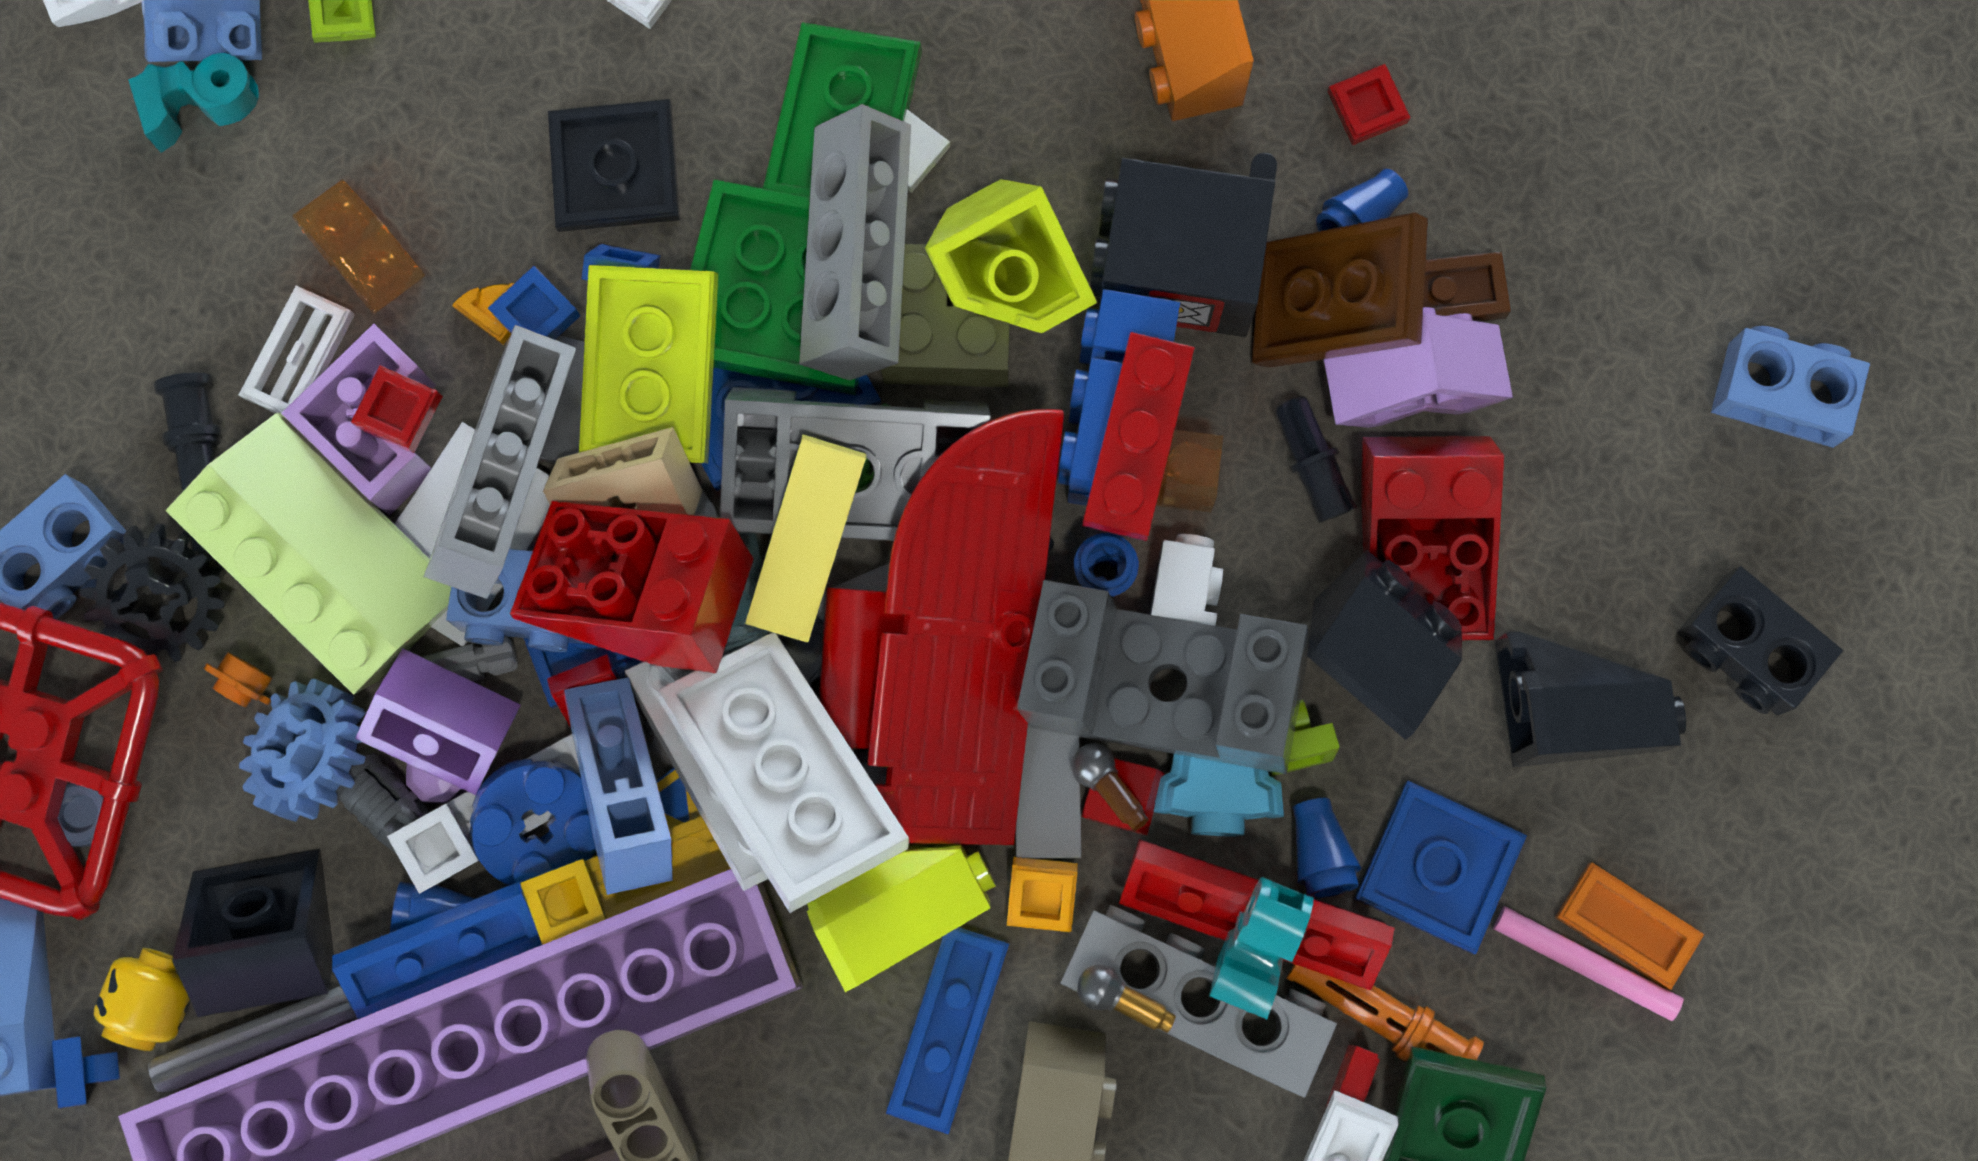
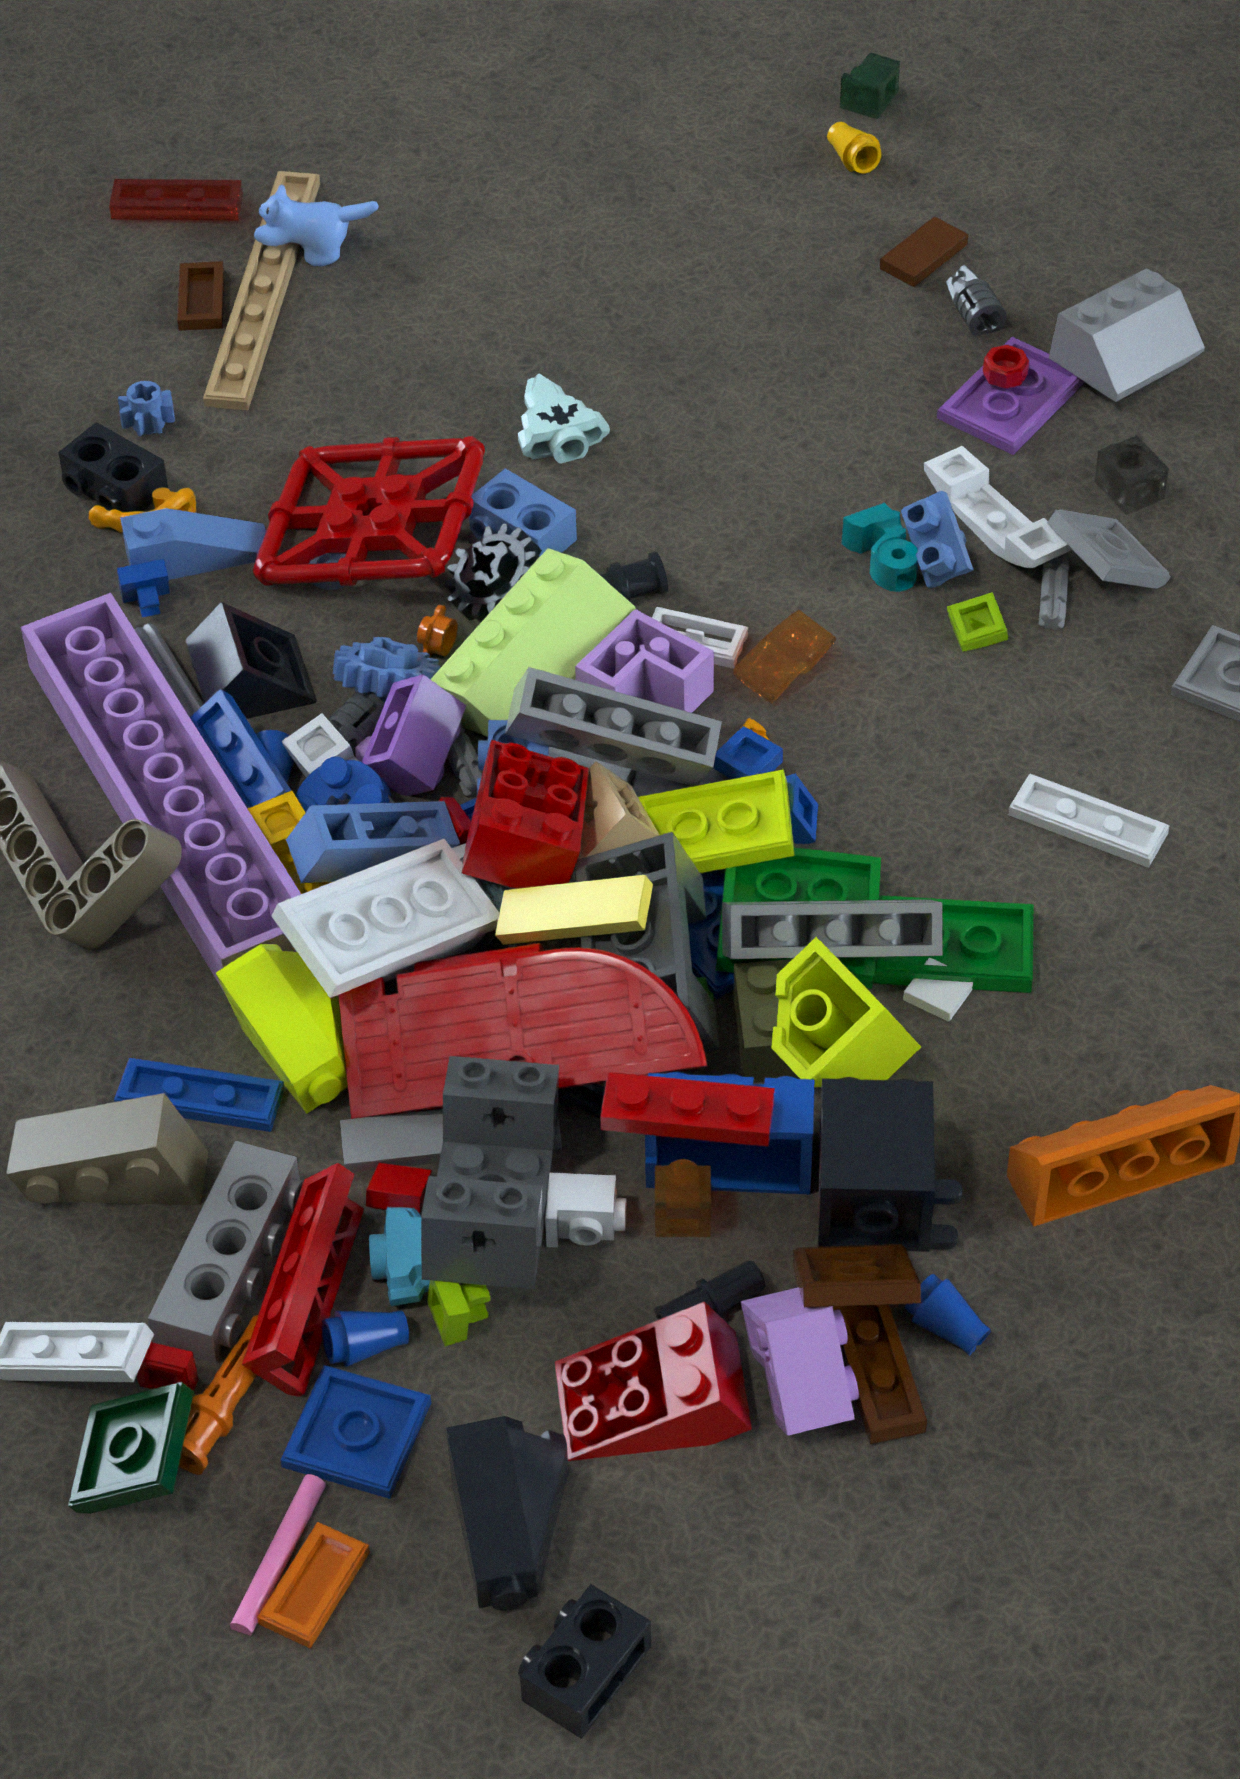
camera: 80 degrees right, 30 degrees down
(142, 1001) = (189, 604): yellow head -> none
(396, 409) = (646, 668): red tile -> none
(613, 165) = (885, 804): black tile -> none
(1042, 894) = (313, 1139): light orange tile -> none
(1096, 769) = (416, 1157): piece -> none
(1104, 989) = (229, 1160): piece -> none
(1109, 550) = (585, 1141): blue cone -> none
(1254, 950) = (268, 1259): teal leg -> none
(1368, 104) = (1053, 1318): red tile -> none
(1385, 641) = (539, 1331): black slope -> none
(1788, 401) = (834, 1673): medium blue brick -> none

